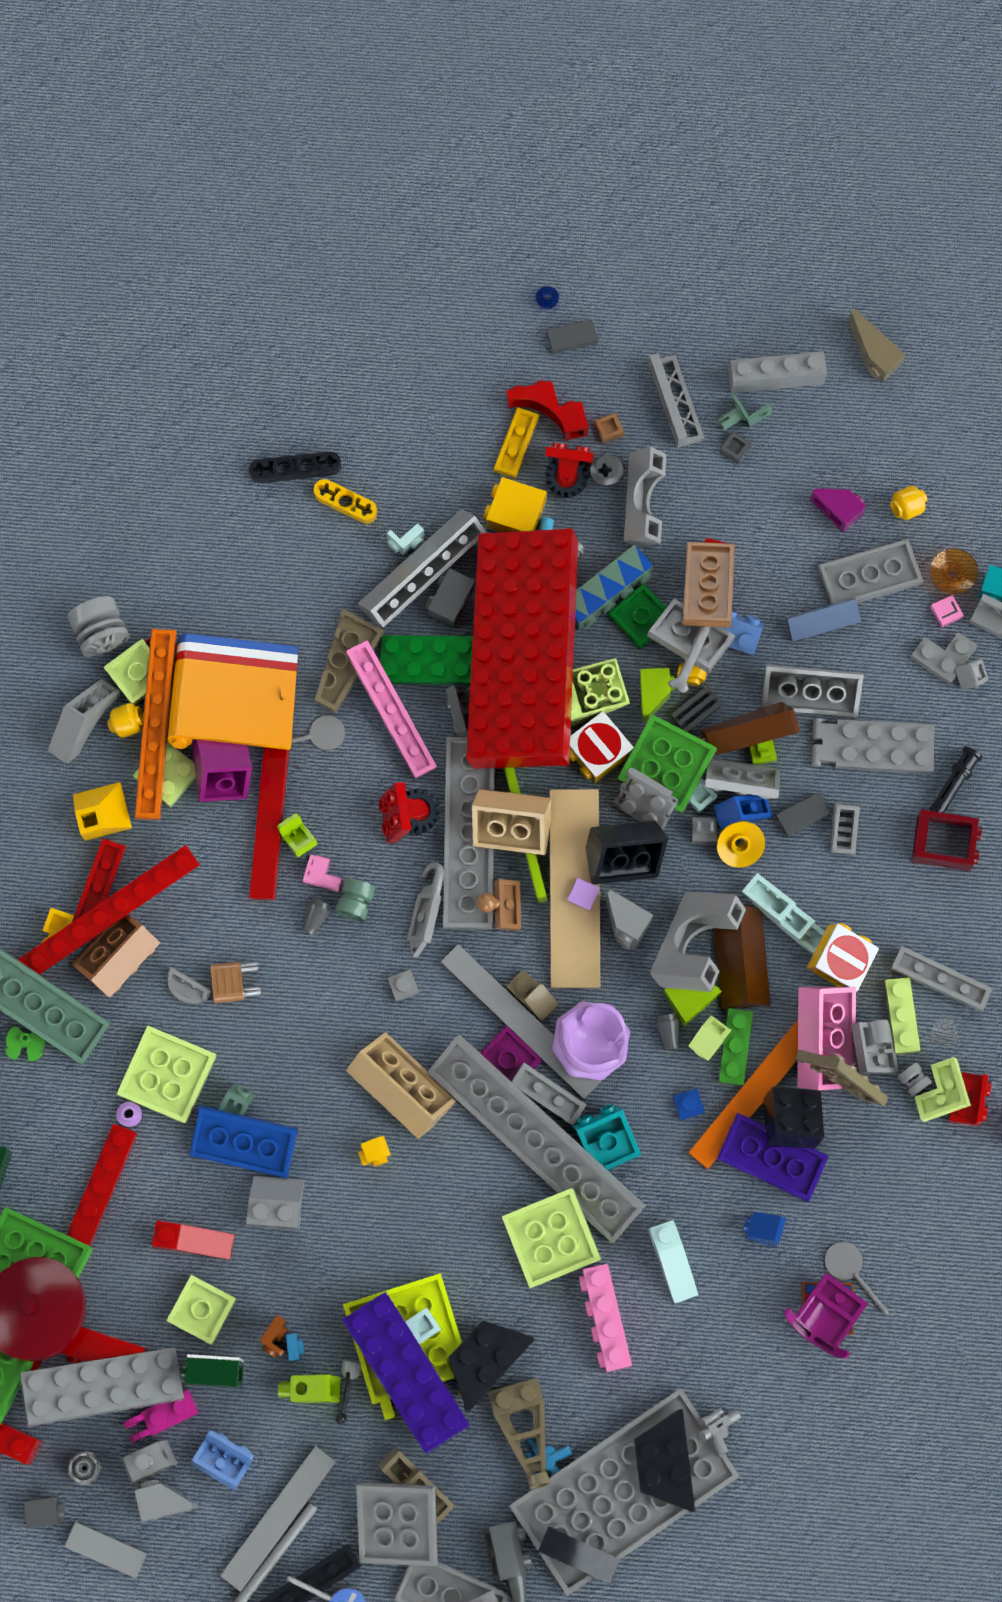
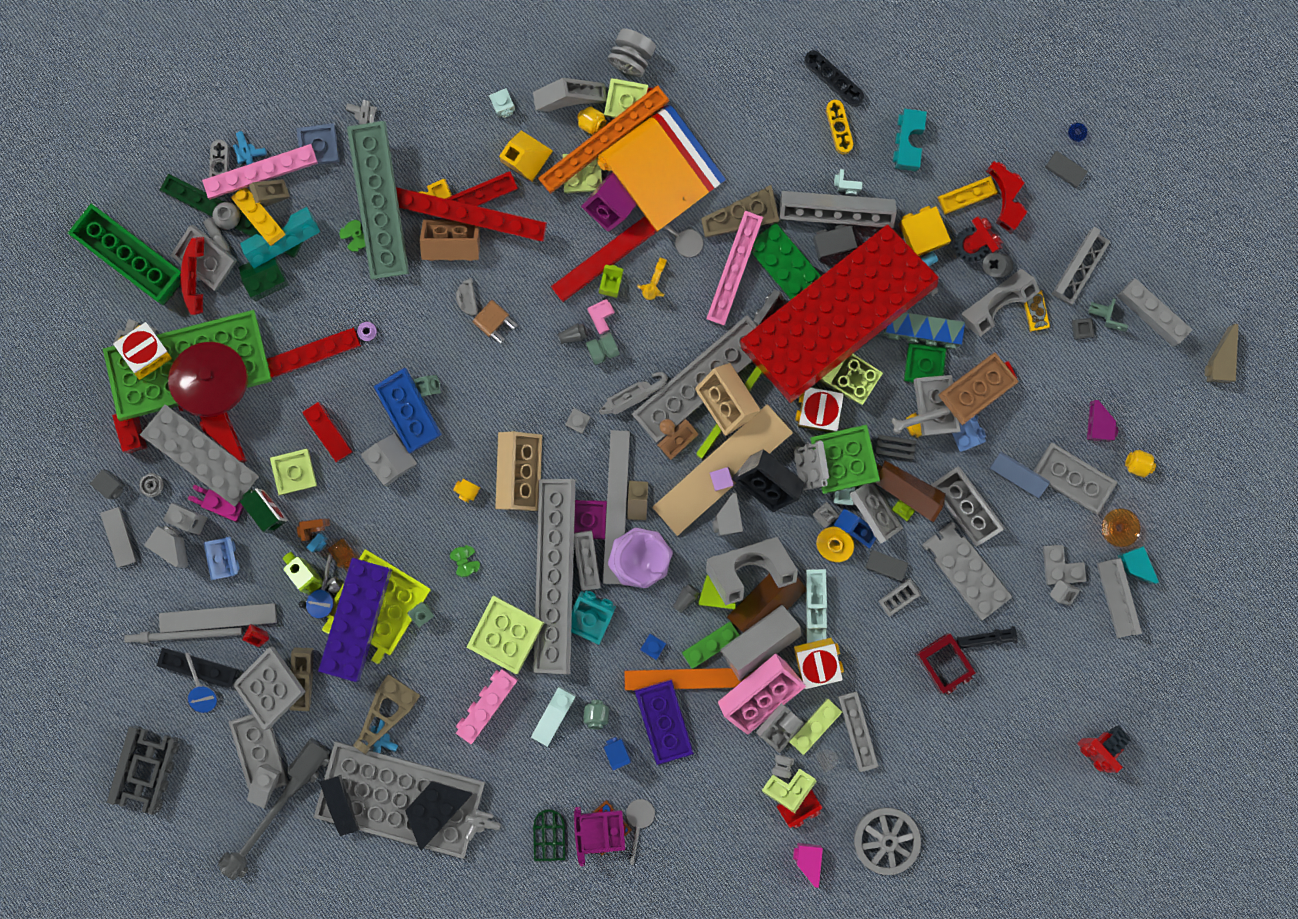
camera: 45 degrees right, 10 degrees up
(30, 790) = (502, 103): none -> light aqua bracket
(166, 1074) = (407, 332): yellowish green plate -> none
(327, 1332) = (342, 553): none -> clear orange bracket
(332, 1494) = (255, 636): none -> red slope
(341, 805) = (650, 291): none -> yellow piece
(357, 1396) = (320, 601): none -> blue piece
(407, 812) = (681, 332): red plate -> none
(423, 1325) = (391, 605): light aqua plate -> none
(428, 464) = (910, 123): none -> teal arch
(448, 1222) = (460, 556): none -> bright green piece
(458, 1303) = (421, 613): none -> sand green bracket
(484, 1359) = (403, 657): black wing -> none
(609, 428) = (1027, 242): medium nougat tile -> none
(654, 690) = (884, 412): lime slope -> none
(683, 475) = (1036, 313): none -> tile
(708, 1217) = (596, 715): none -> sand green head
(709, 1038) = (701, 626): yellowish green brick -> none
(775, 994) = (761, 642): none -> light grey slope
(792, 1382) = (544, 842): none -> dark green window
(793, 1117) = (696, 715): black brick -> none
(844, 1075) = (746, 726): dark tan wing -> none
(946, 611) = (1091, 544): bright pink tile -> none

